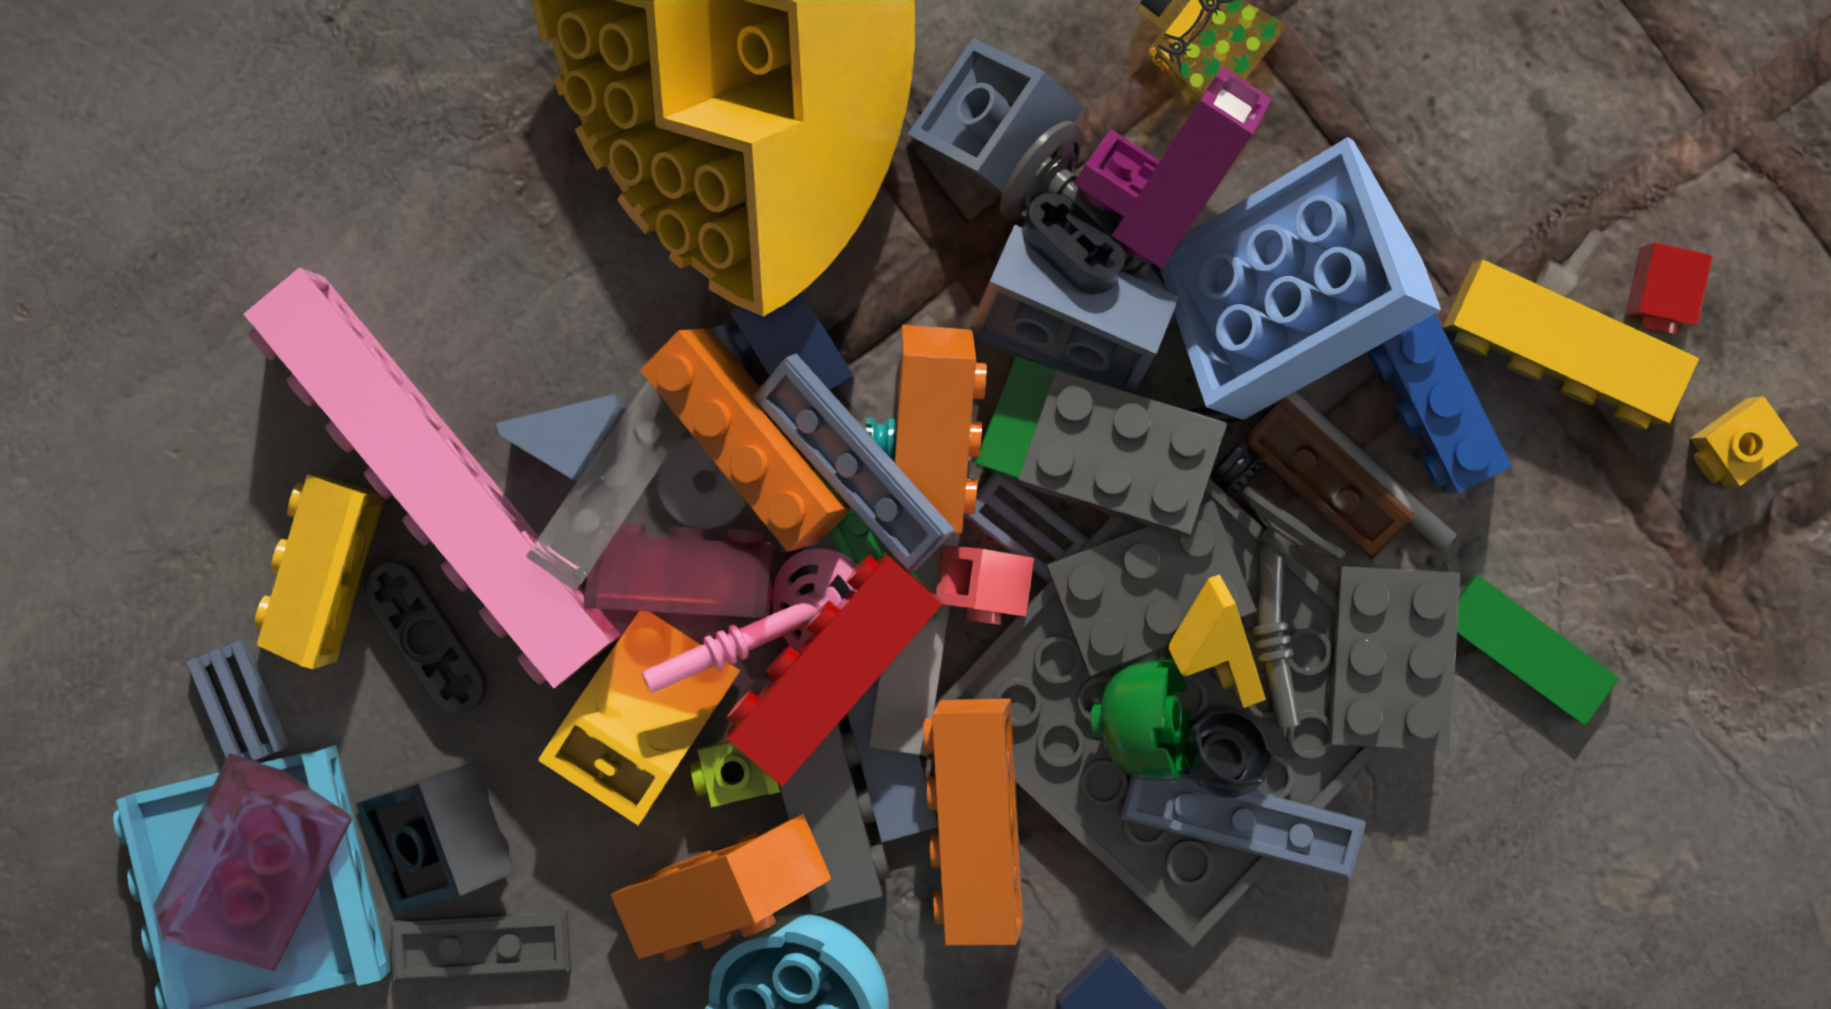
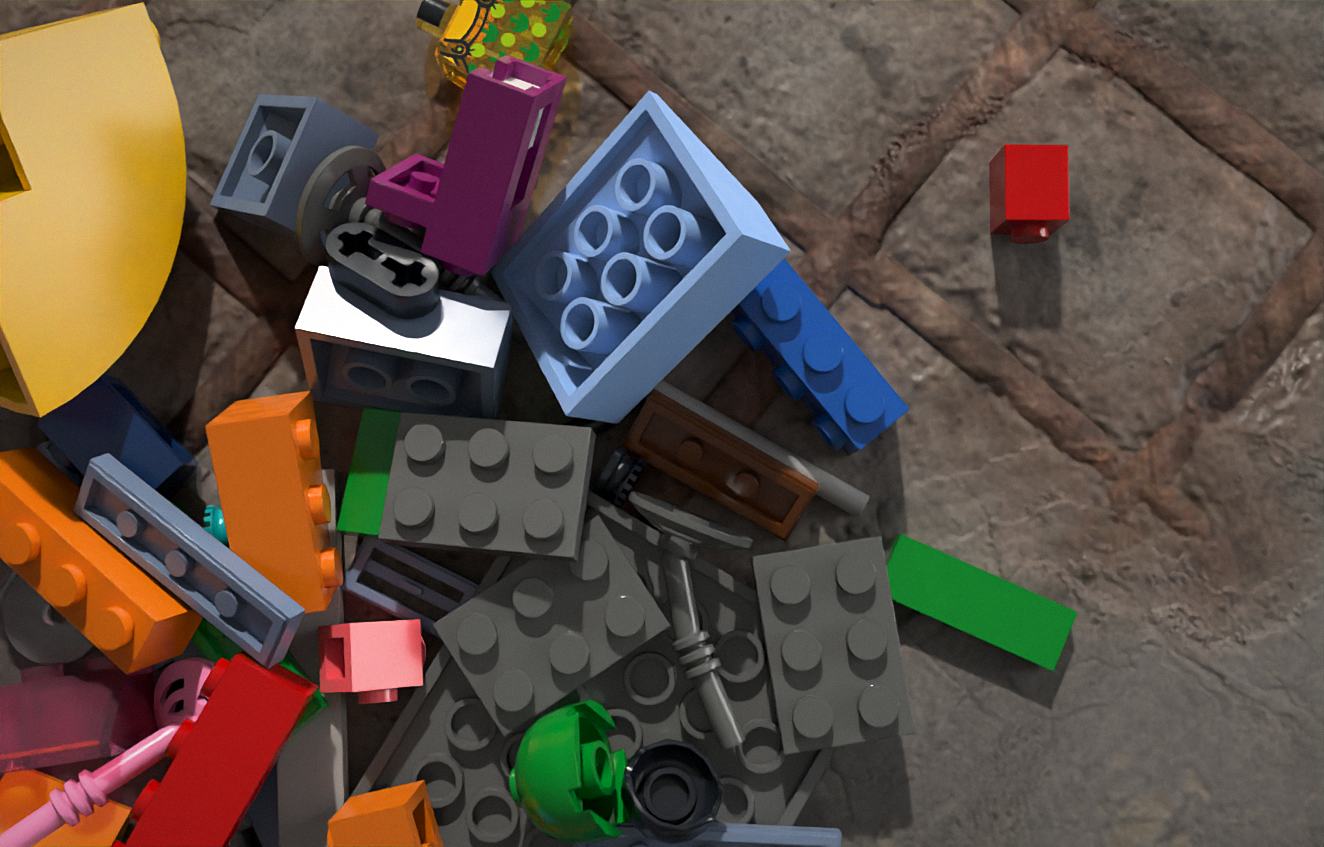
camera: 15 degrees left, 5 degrees down
(1216, 638) = (627, 668): yellow slope -> none
(1564, 279) = (913, 210): clear hand -> none
(1570, 344) = (942, 272): yellow brick -> none
(1742, 442) = (1146, 335): yellow brick -> none

